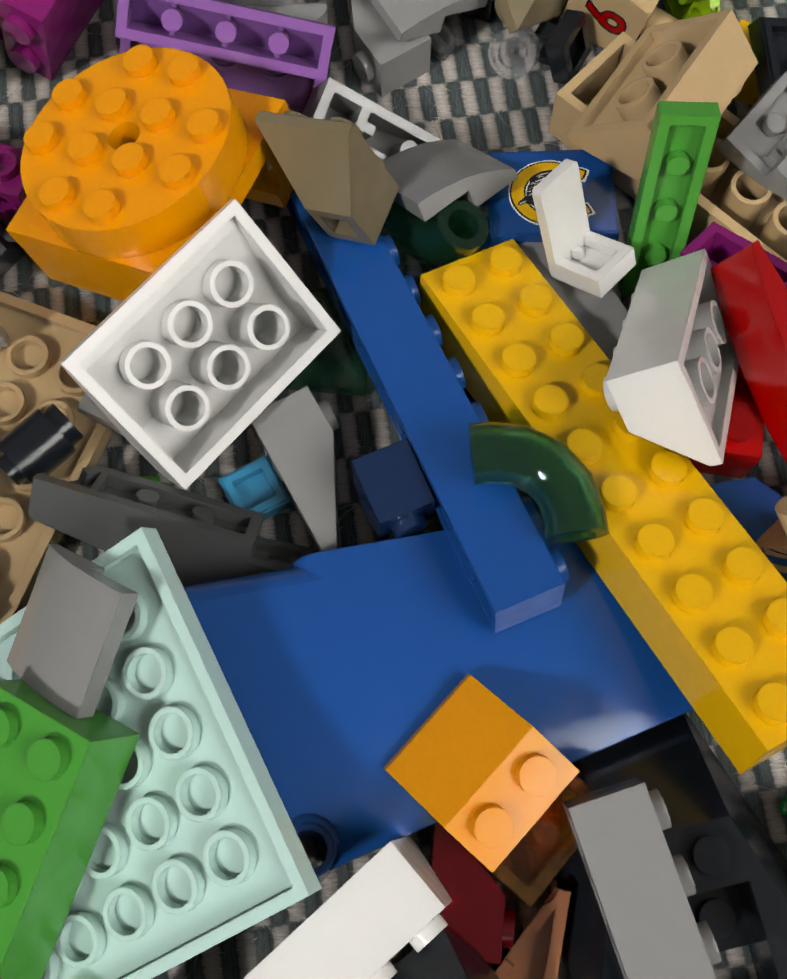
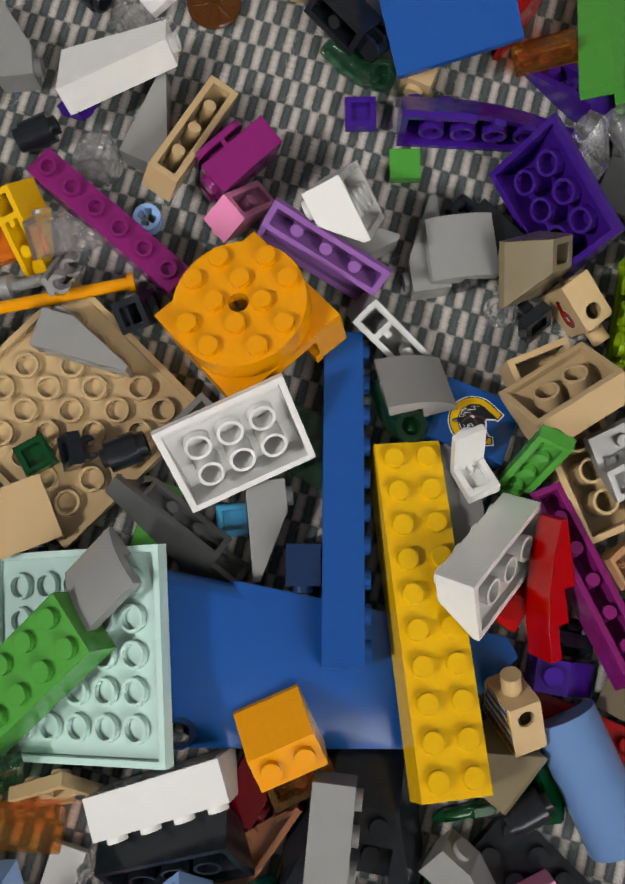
camera: 20 degrees right, 10 degrees up
(70, 52) = (238, 210): none -> bright pink slope
(332, 172) = (346, 370): dark tan slope -> none
(545, 471) = (382, 603): clear green cylinder -> none

